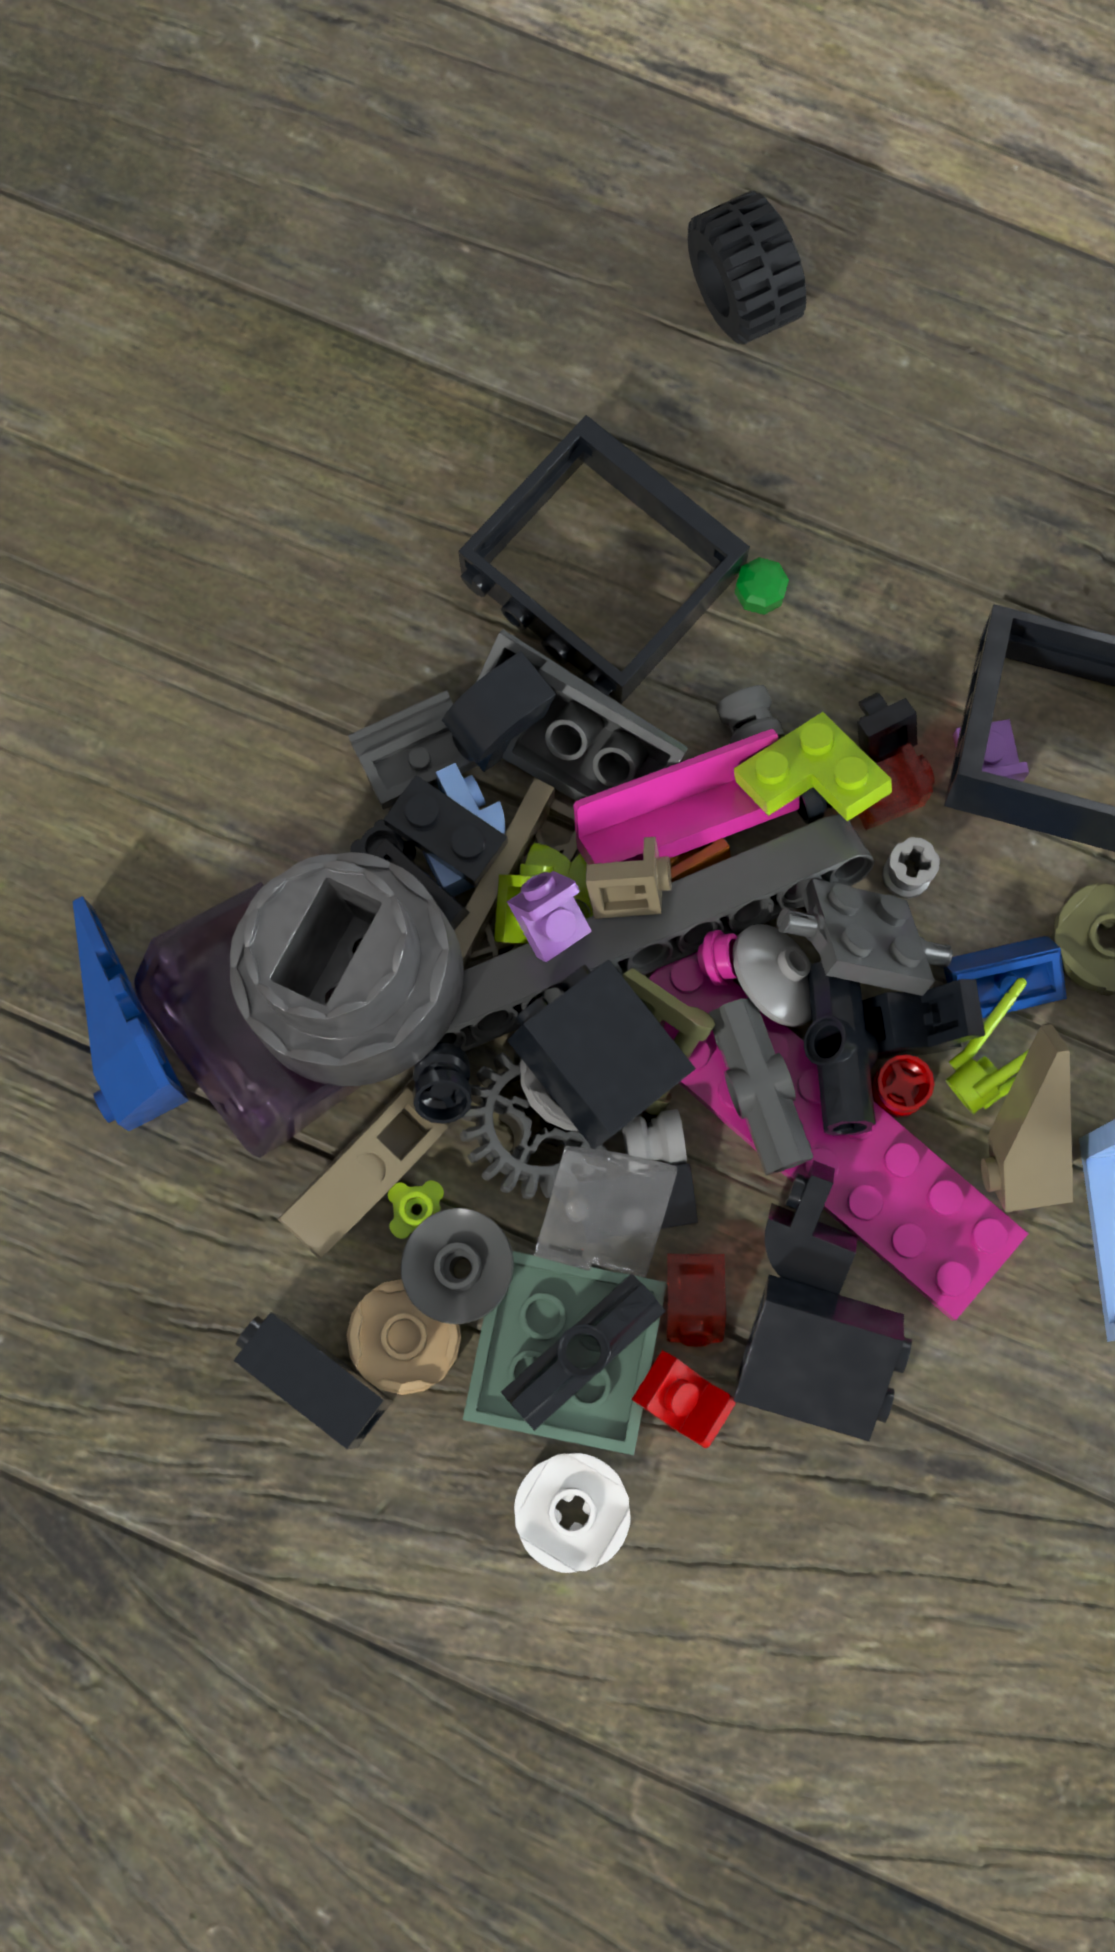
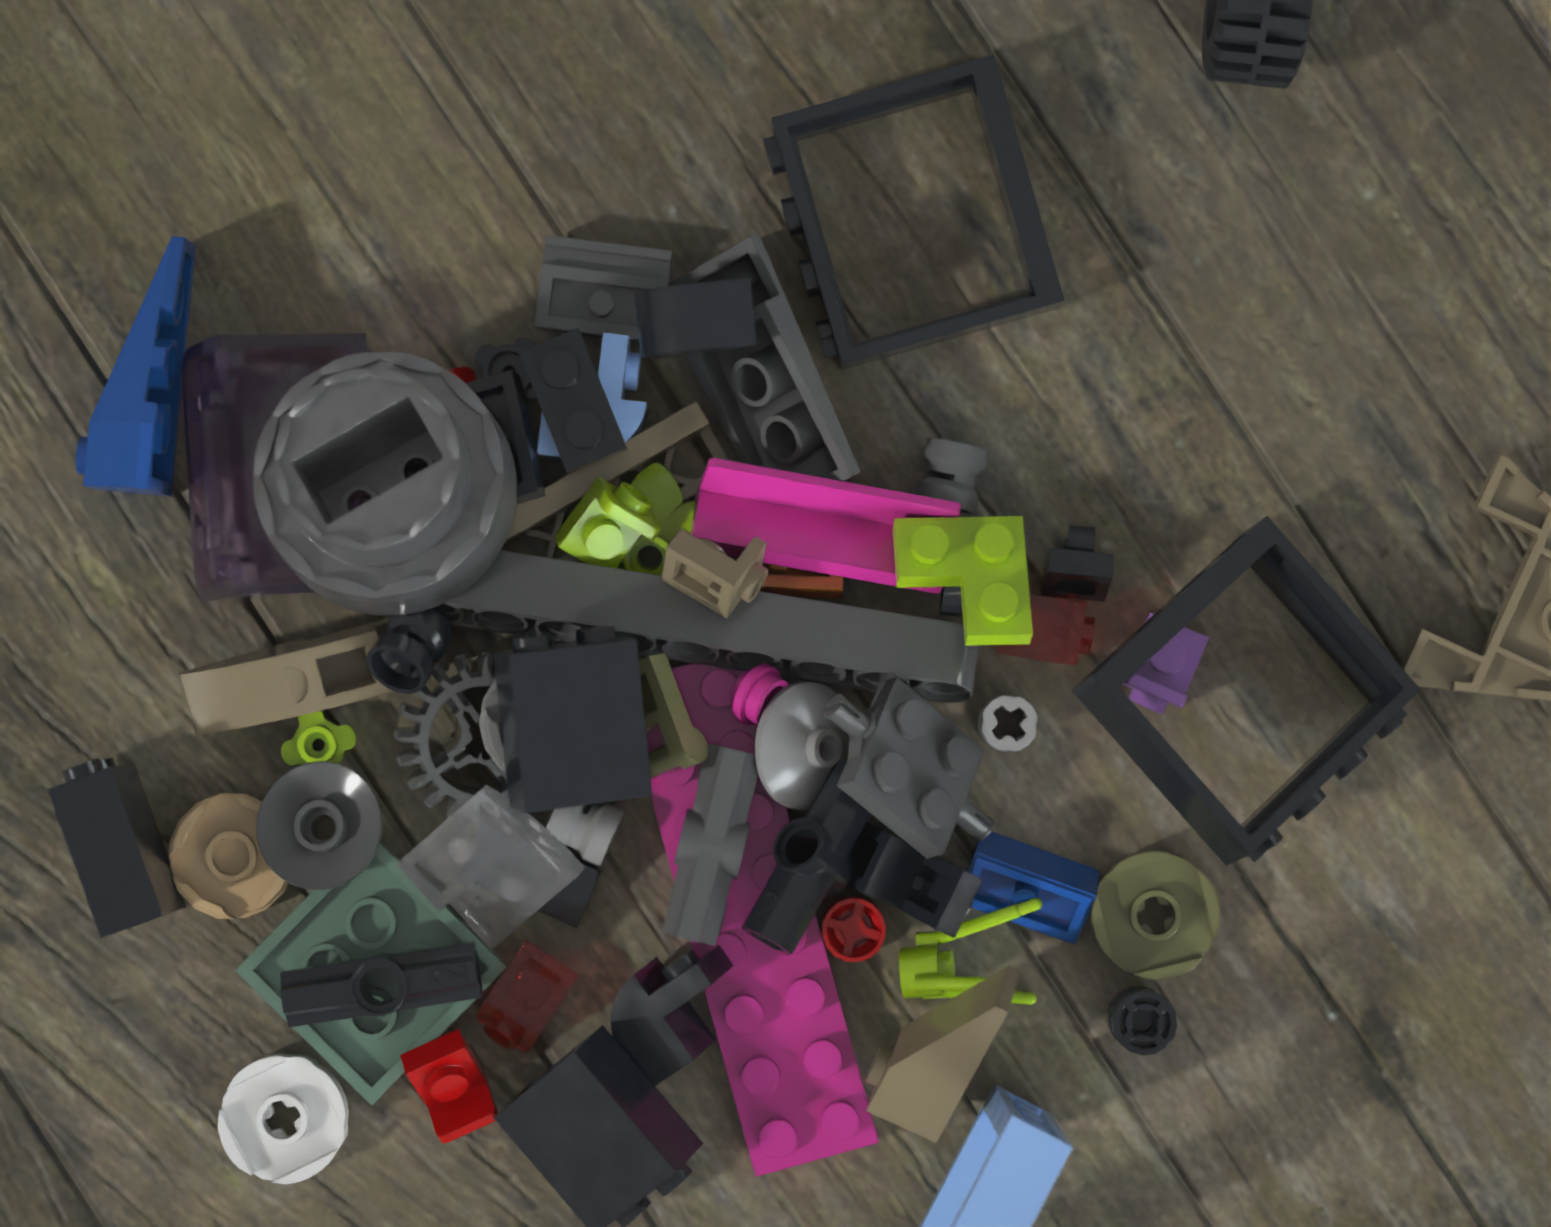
camera: 35 degrees right, 10 degrees up
(549, 914) = (613, 554): medium lavender bracket -> none
(761, 585) = (1059, 340): green tile -> none

